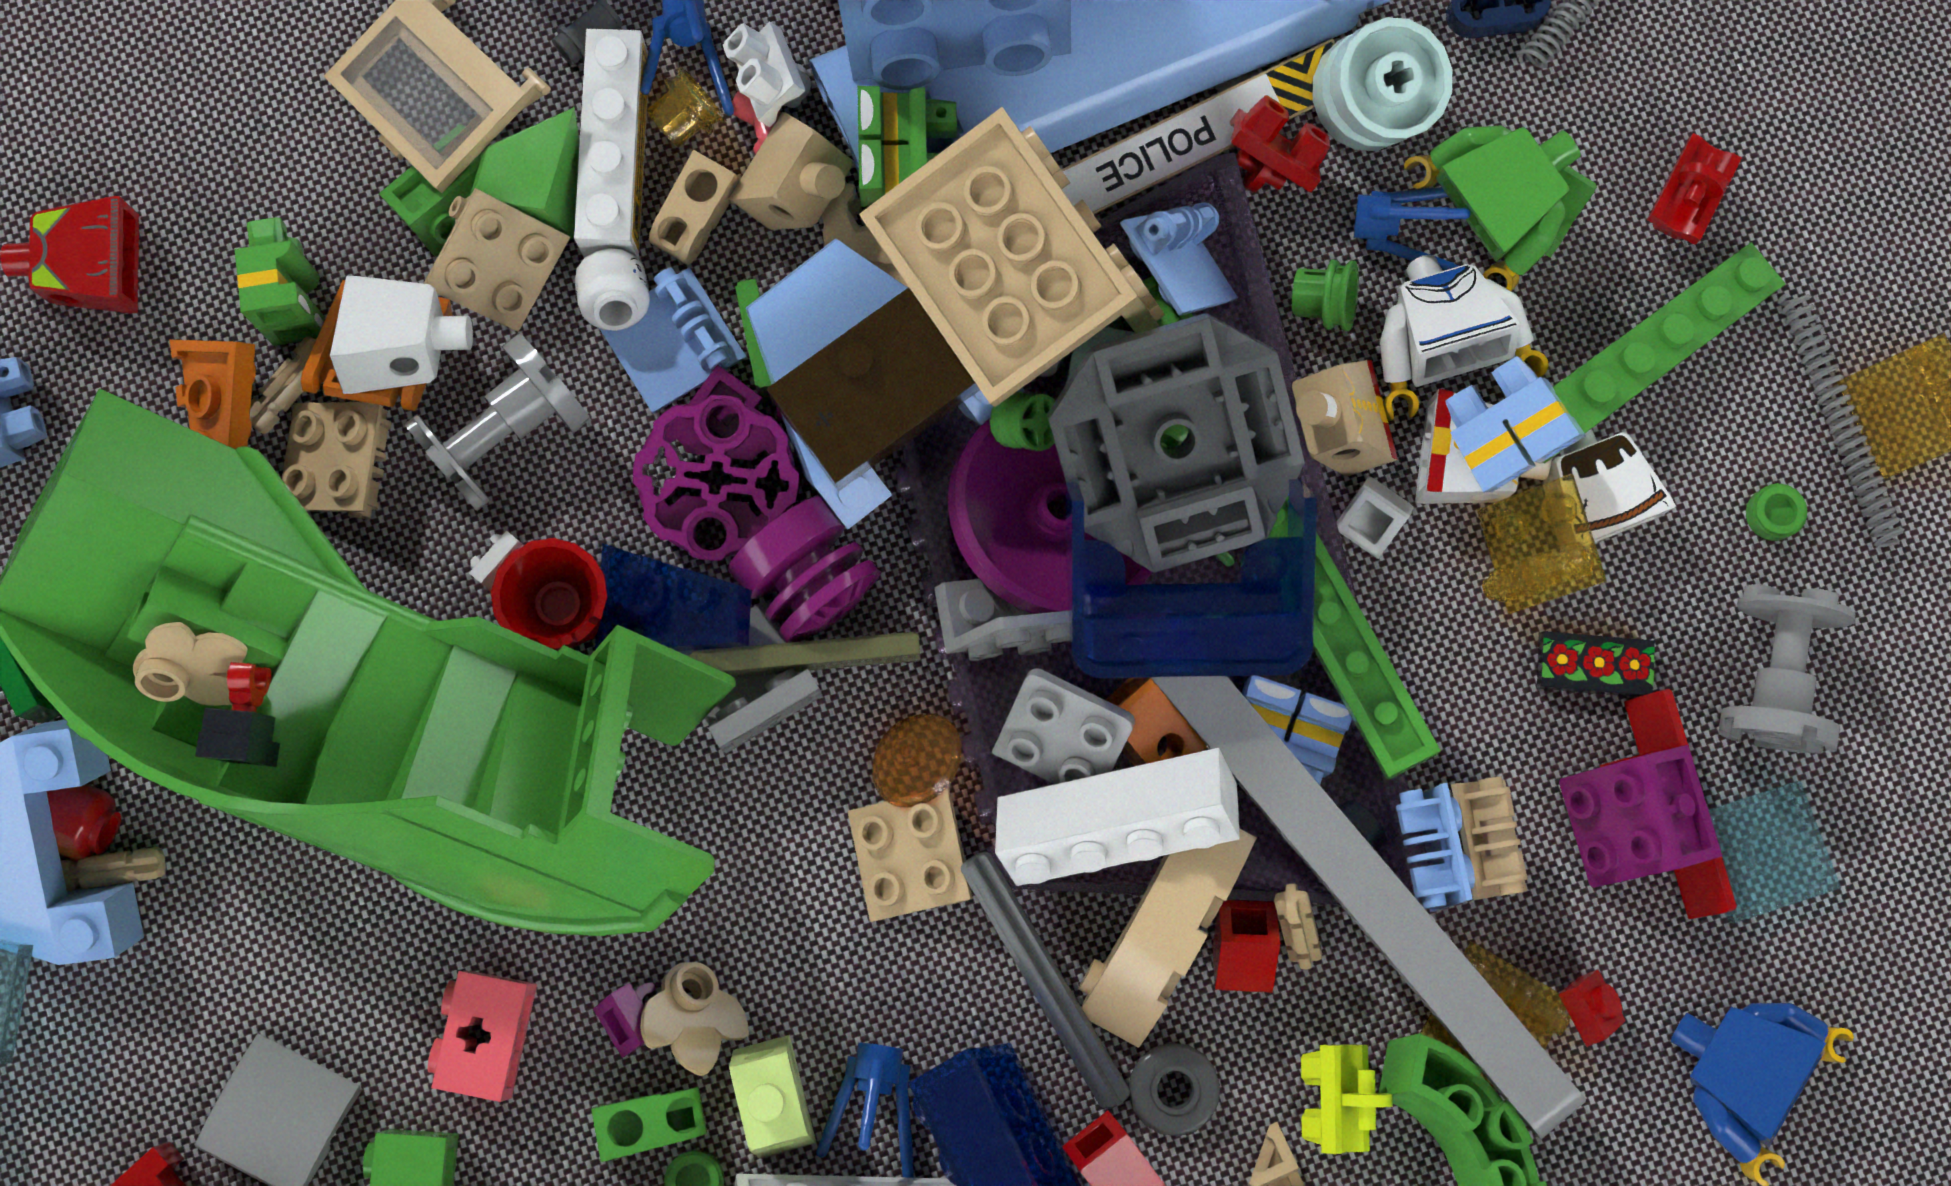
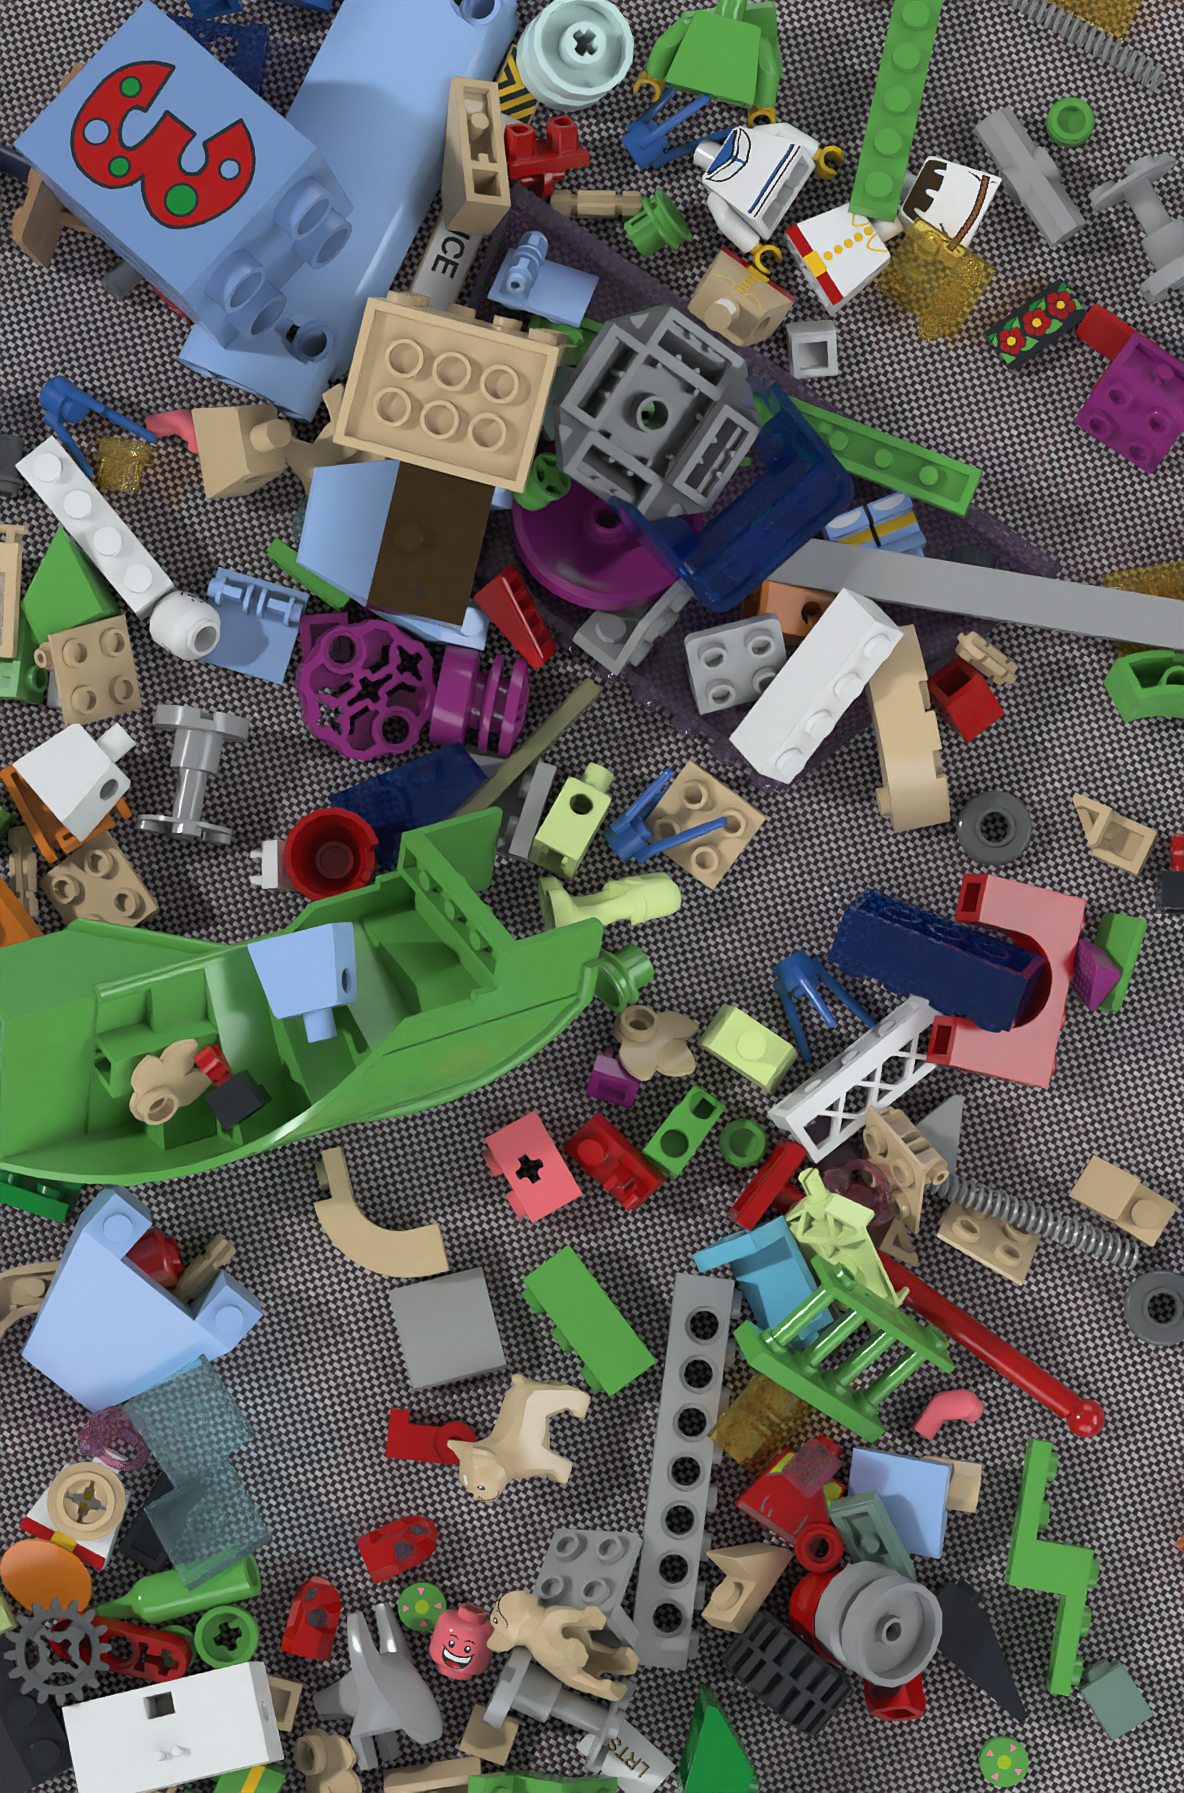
camera: 40 degrees left, 5 degrees up
(277, 970) = (381, 1250): none -> tan arch
(403, 680) = (309, 975): none -> light blue torso
(560, 1096) = (614, 1162): none -> red plate
(693, 208) = (188, 524): tan leg -> none
(715, 928) = (622, 976): none -> bright green piece
(766, 70) = (156, 389): white hips -> none
(774, 763) = (567, 835): none -> yellowish green torso
(785, 864) = (629, 898): none -> yellowish green piece
(838, 805) = (630, 833): none -> blue plant
(895, 135) = (296, 370): bright green hips -> none
(902, 523) = (515, 614): none -> red slope
(916, 760) = (647, 752): clear orange piece -> none
(1045, 980) = (856, 828): dark grey axle -> none
(1214, 100) = (474, 158): none -> tan slope
(1289, 233) = (597, 203): none -> tan axle
(1346, 1098) = (1105, 740): neon yellow hips -> none
(1439, 820) = (1017, 515): light blue hinge -> none
(1490, 837) = (1059, 499): tan hinge -> none
(1532, 412) = (859, 222): light blue hips -> none
(1701, 528) = (1029, 176): none -> light grey piece

